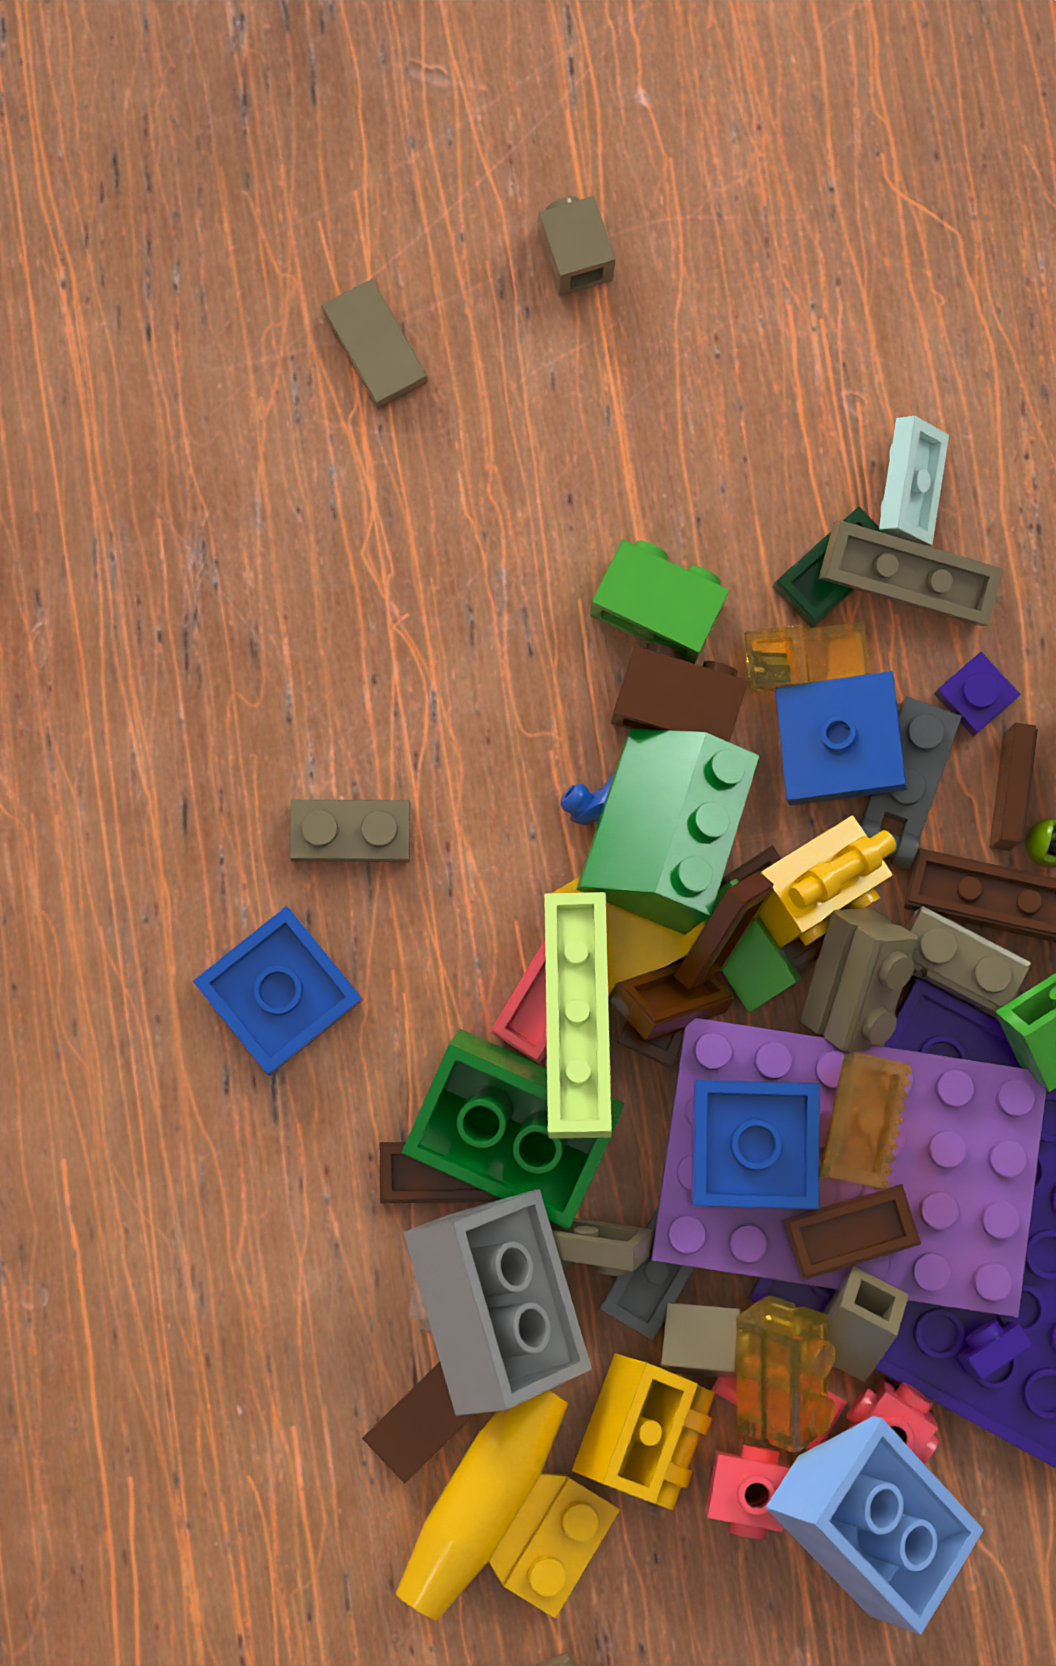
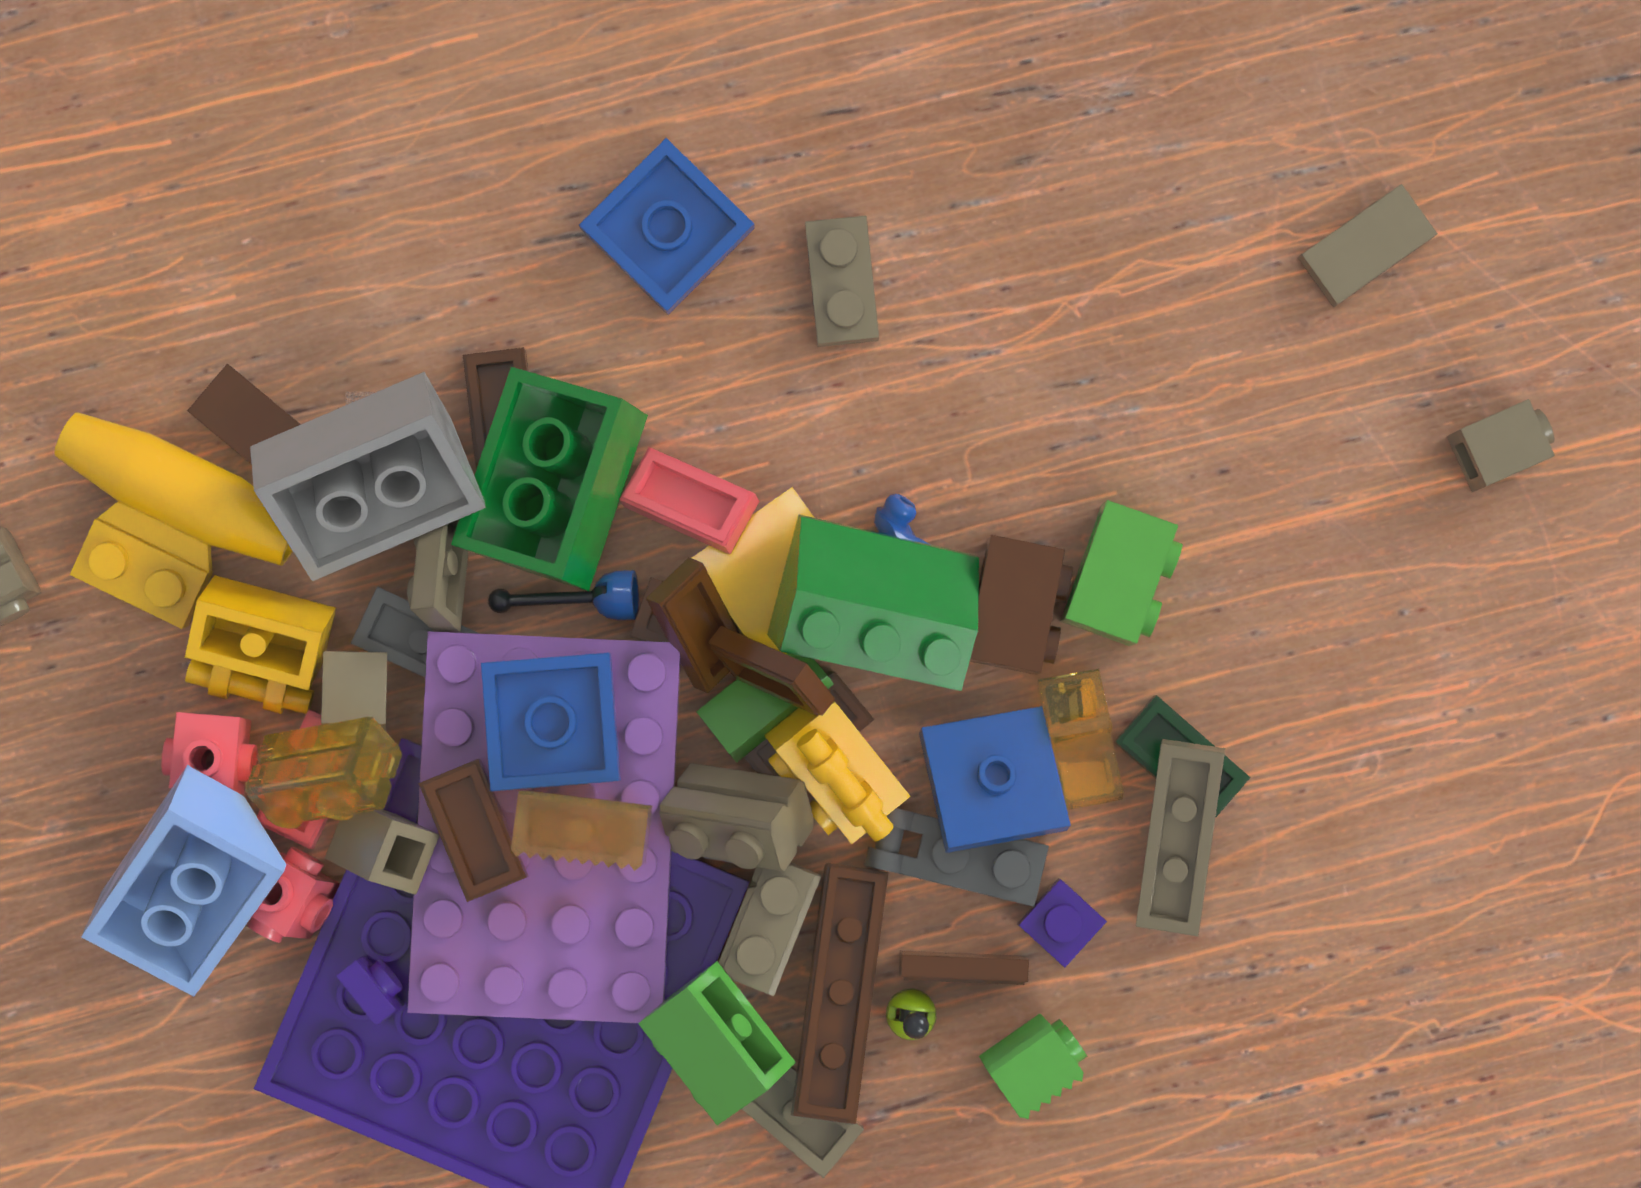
camera: 85 degrees right, 5 degrees up
(577, 1016) = (664, 525): yellowish green plate -> none
(629, 1081) = (613, 597): none -> hinge
(914, 480) = (1283, 833): light aqua plate -> none

